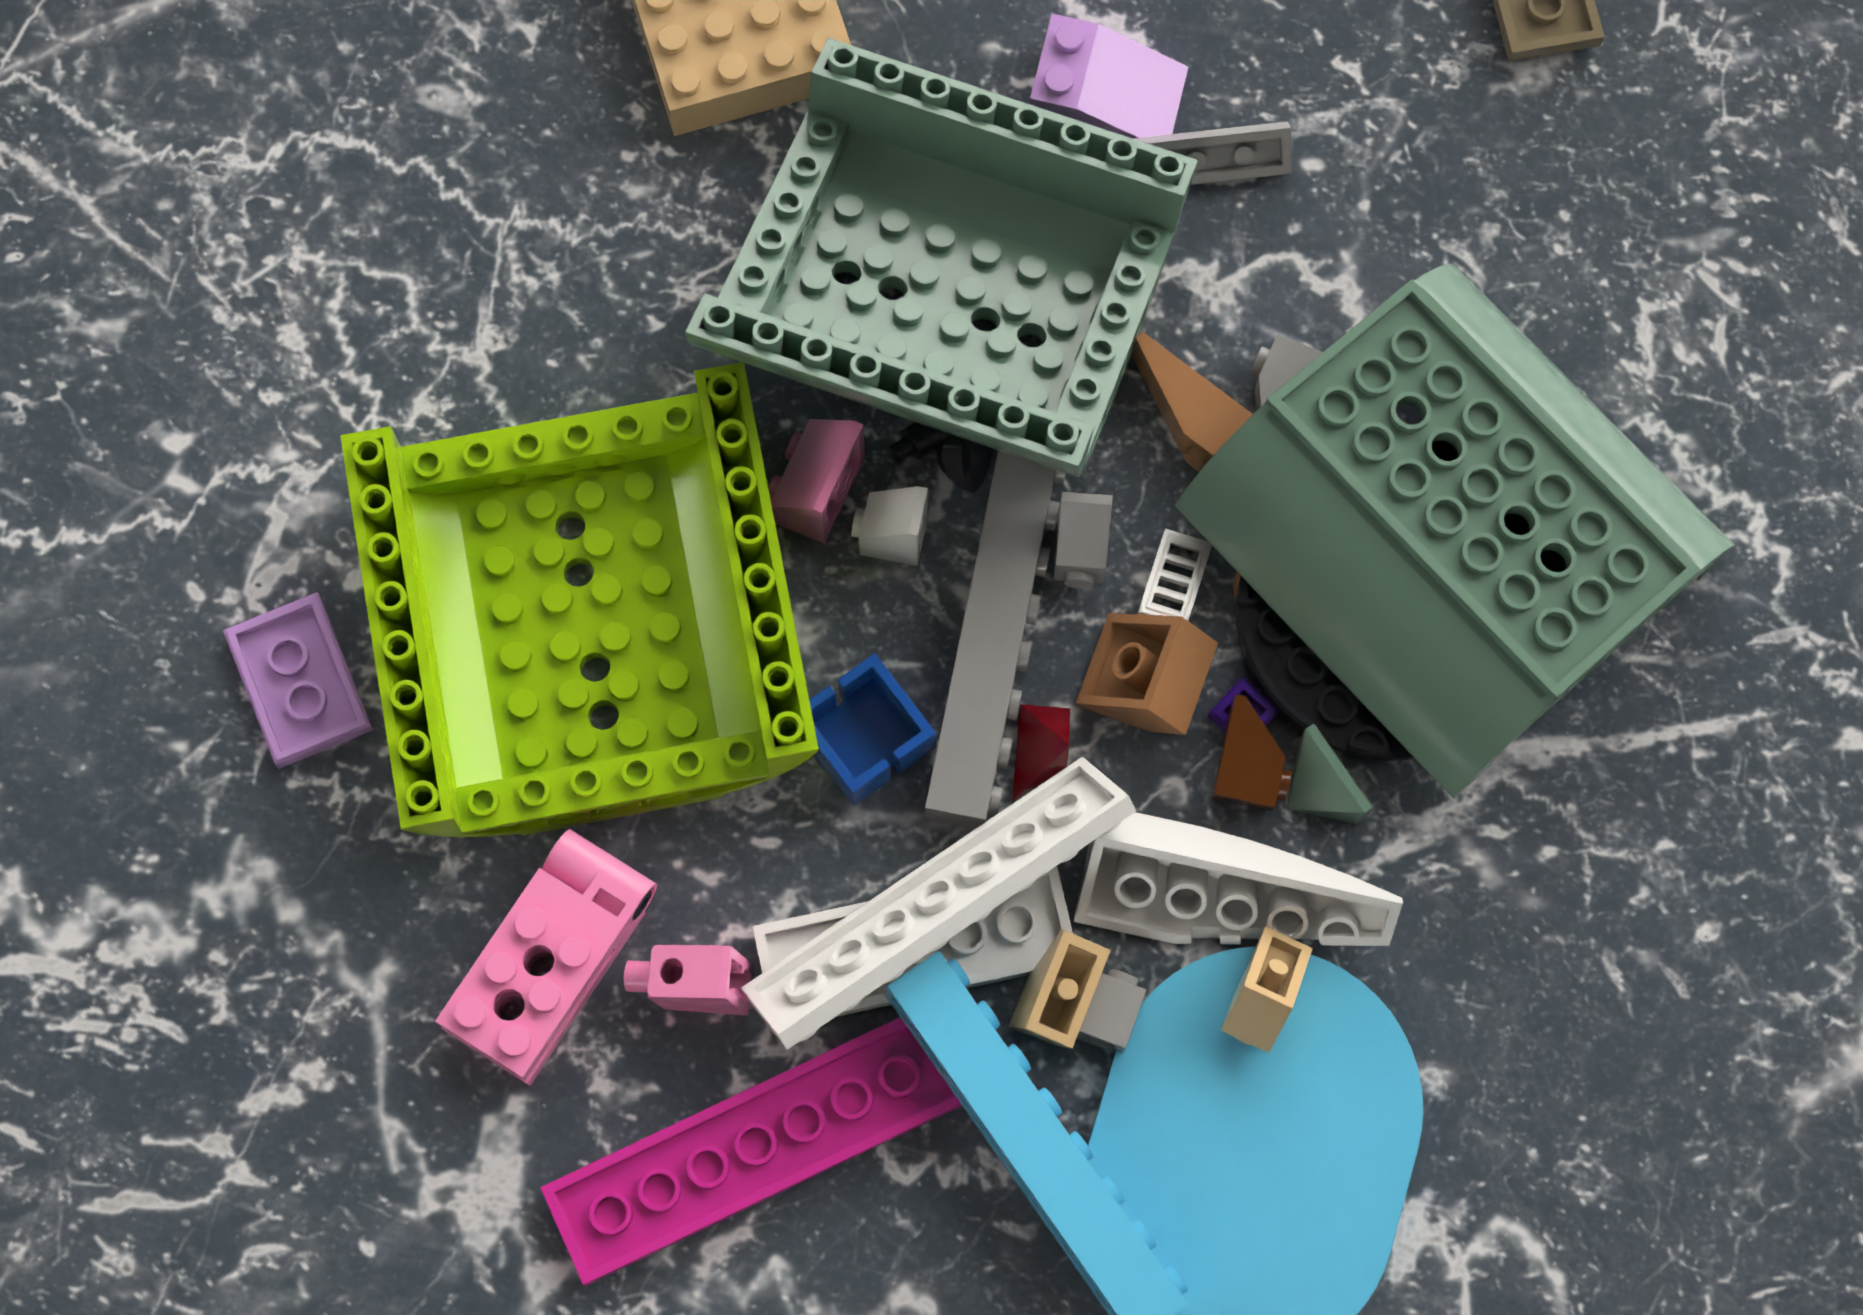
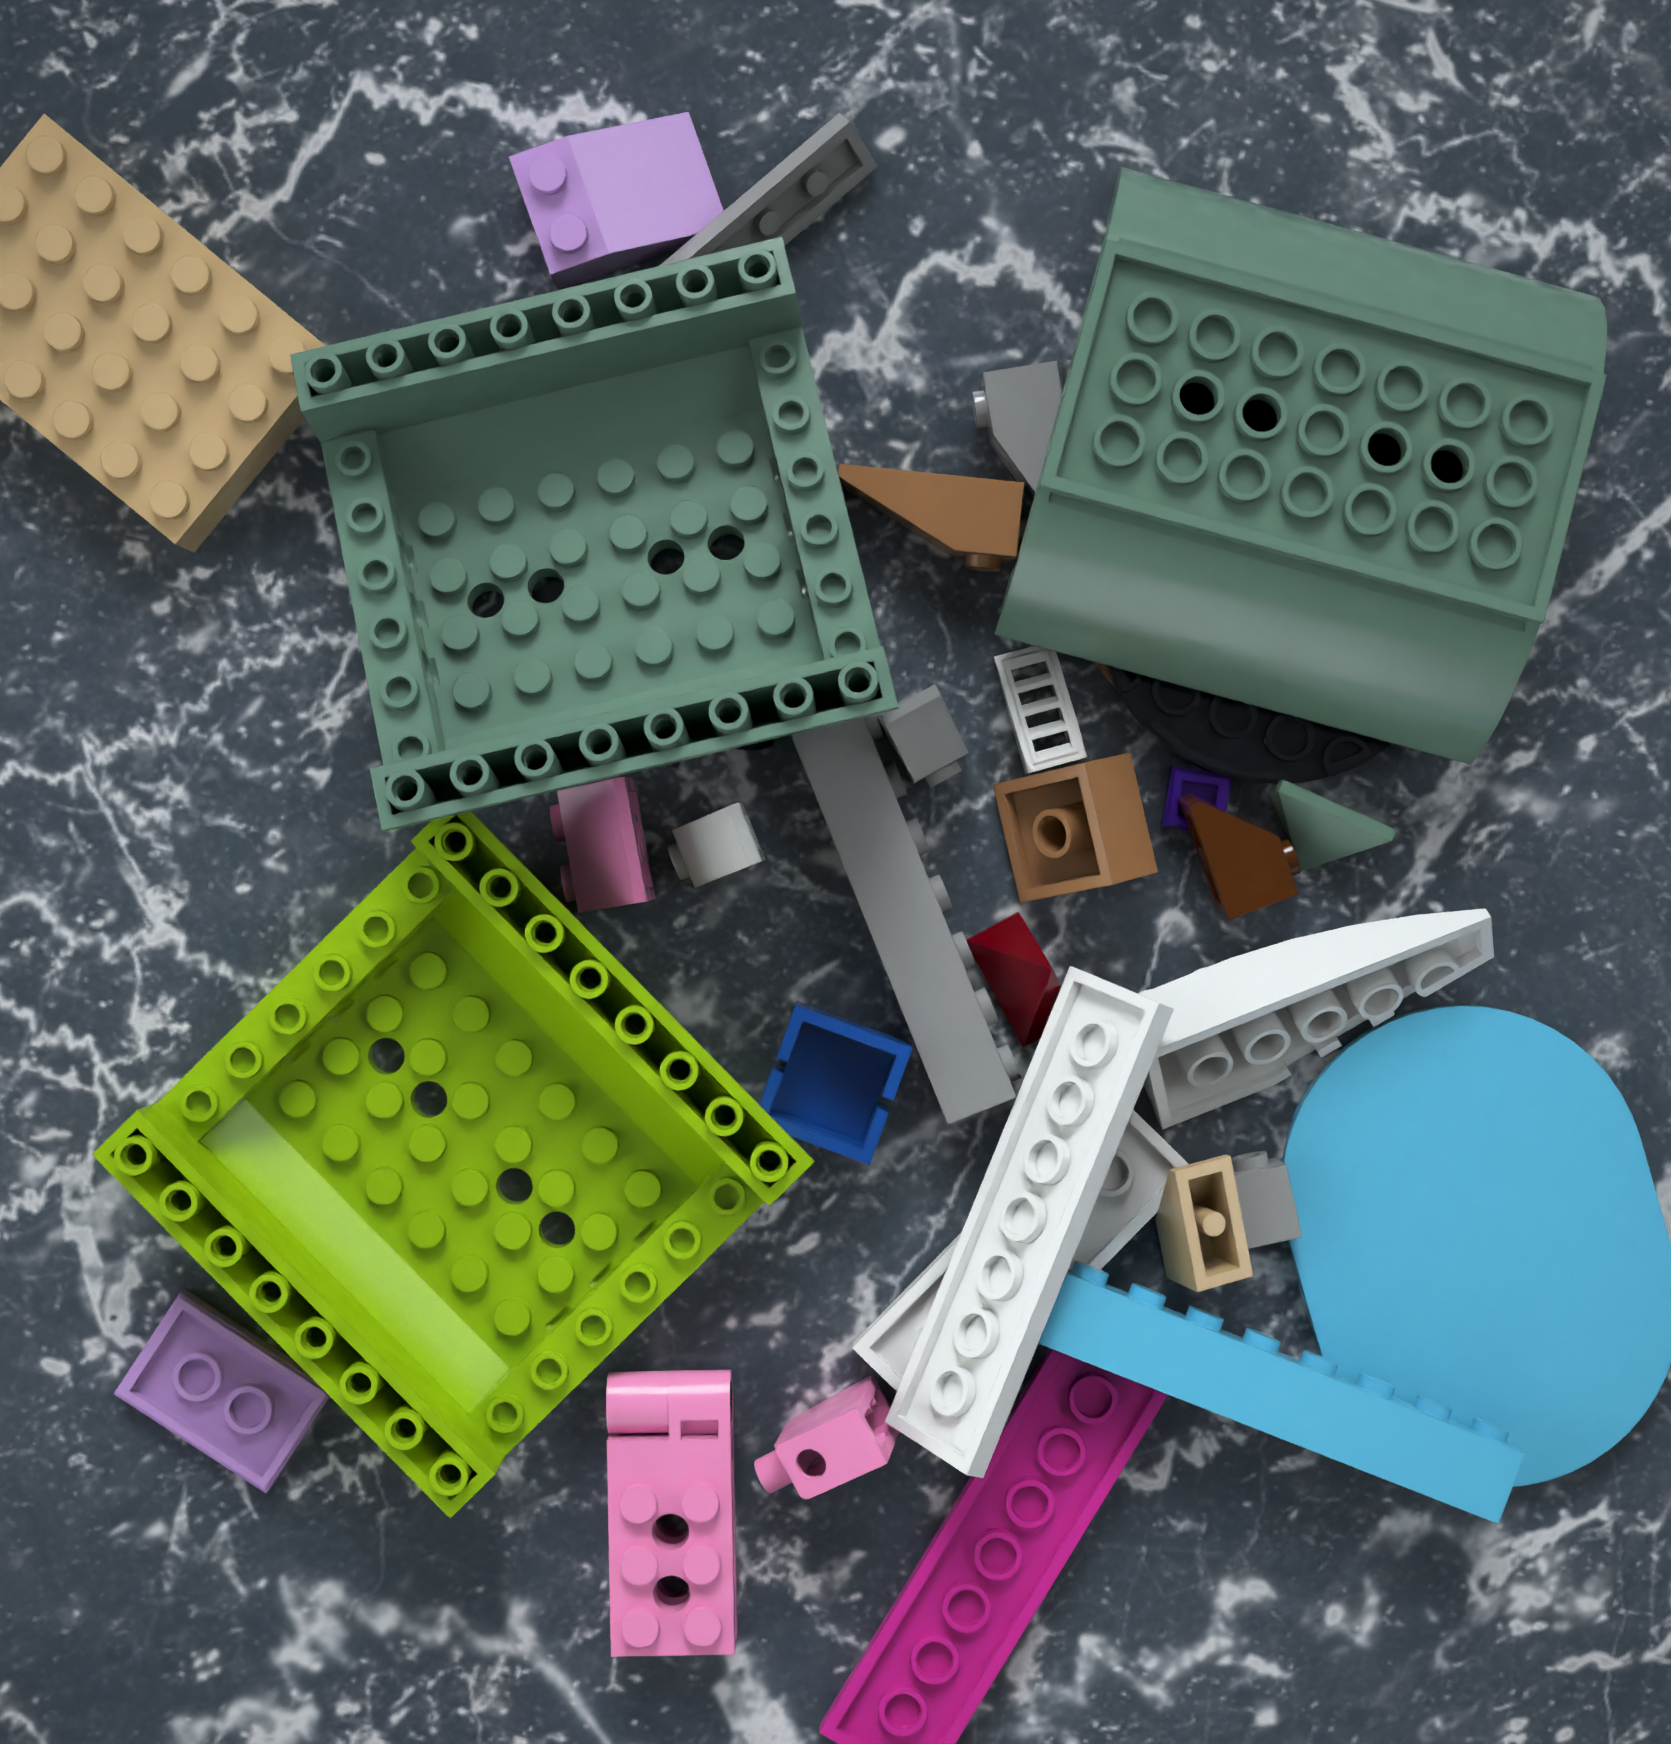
camera: 30 degrees left, 15 degrees up
(1267, 990) = (1405, 1085): tan slope -> none

